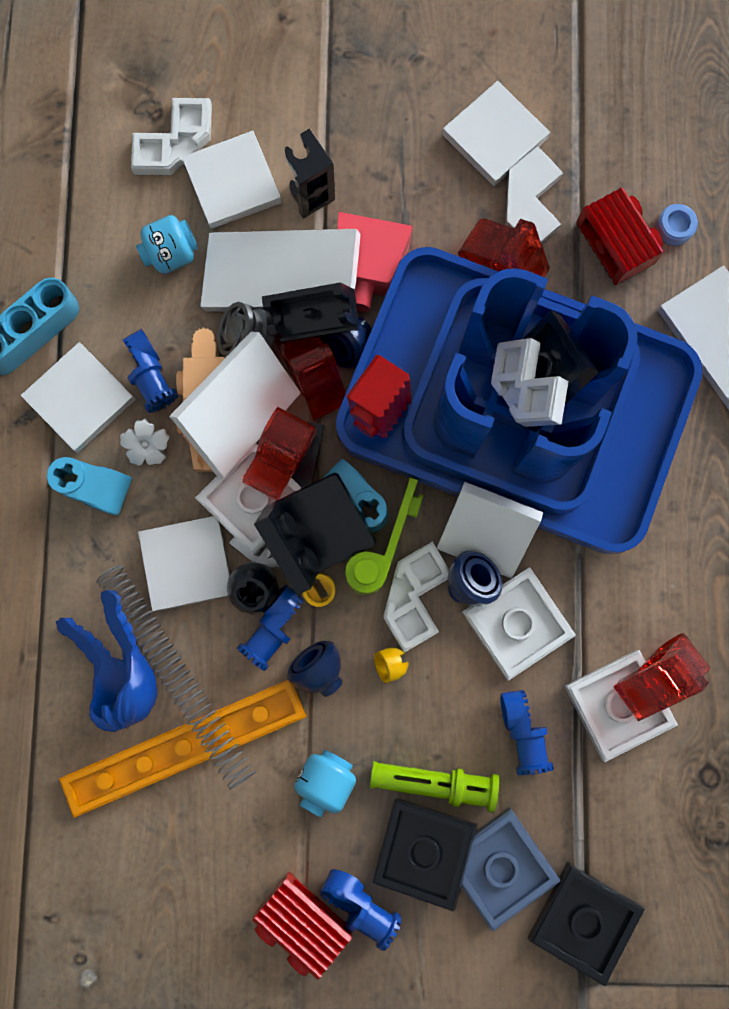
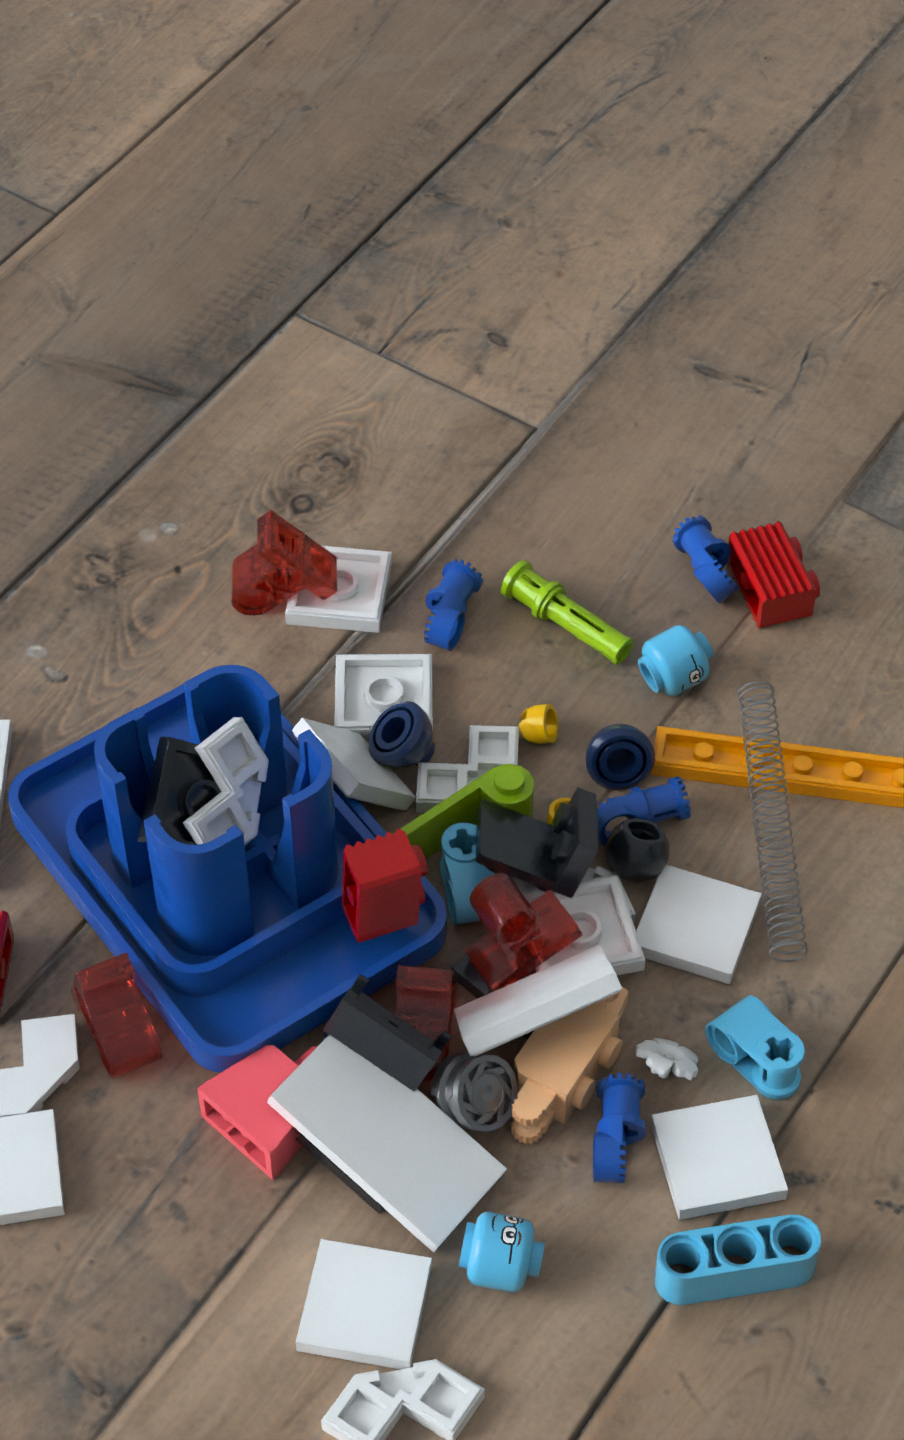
camera: 145 degrees left, 30 degrees down
(121, 688) = (838, 832): blue hair -> none
(313, 176) = (274, 1209): black hinge -> none
(425, 854) = (616, 569): black tile -> none
(505, 870) = (553, 531): sand blue tile -> none
(586, 924) = (504, 462): black tile -> none

